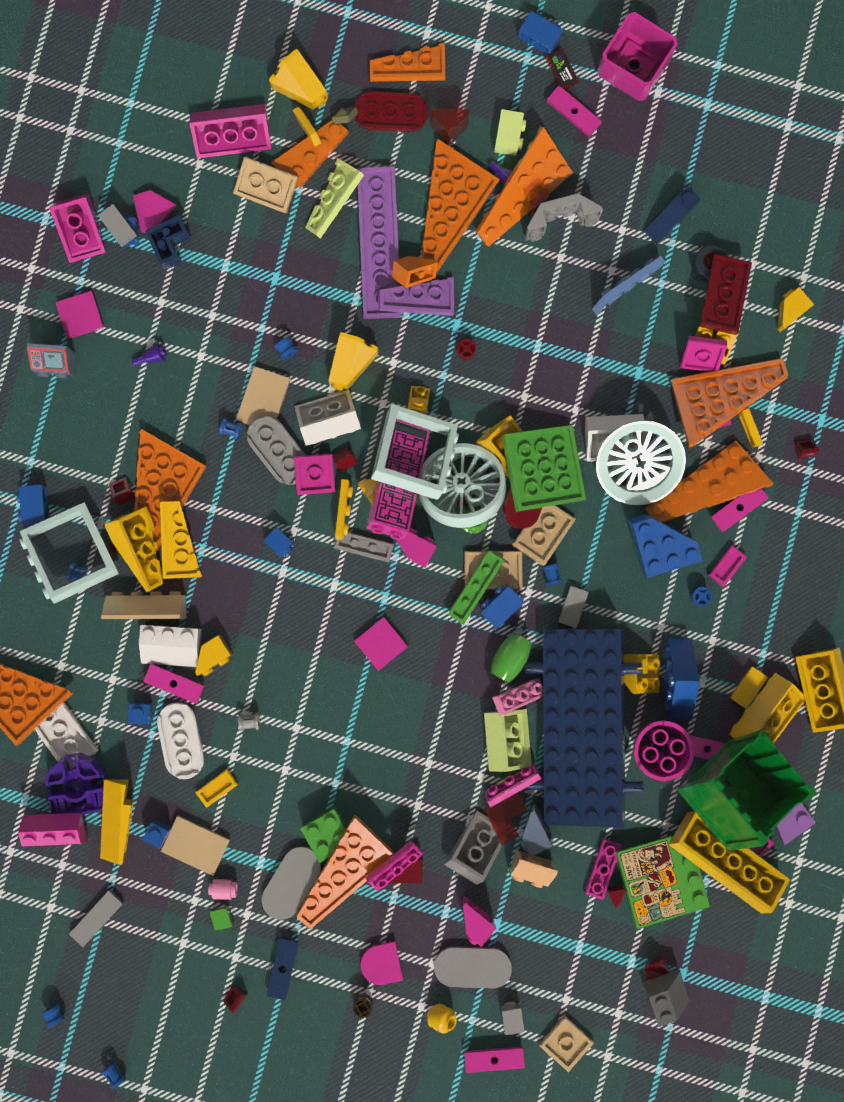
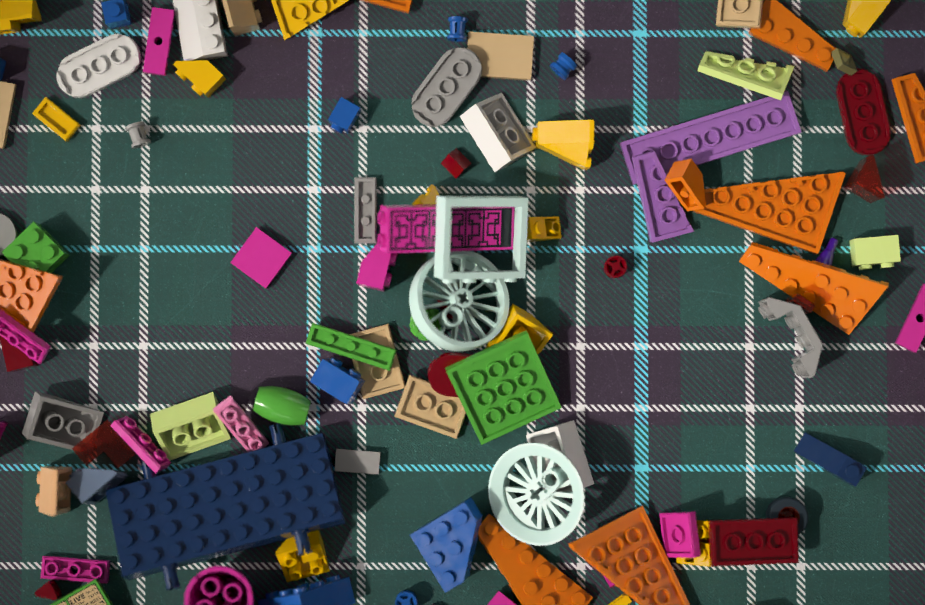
camera: 70 degrees right, 0 degrees up
(307, 126) = (819, 22): yellow tile -> none
(314, 474) = (430, 134): dark pink tile -> none
(343, 510) = (398, 177): yellow tile -> none
(552, 574) = (387, 428): blue bush -> none
(625, 285) = (734, 426): medium blue wing -> none

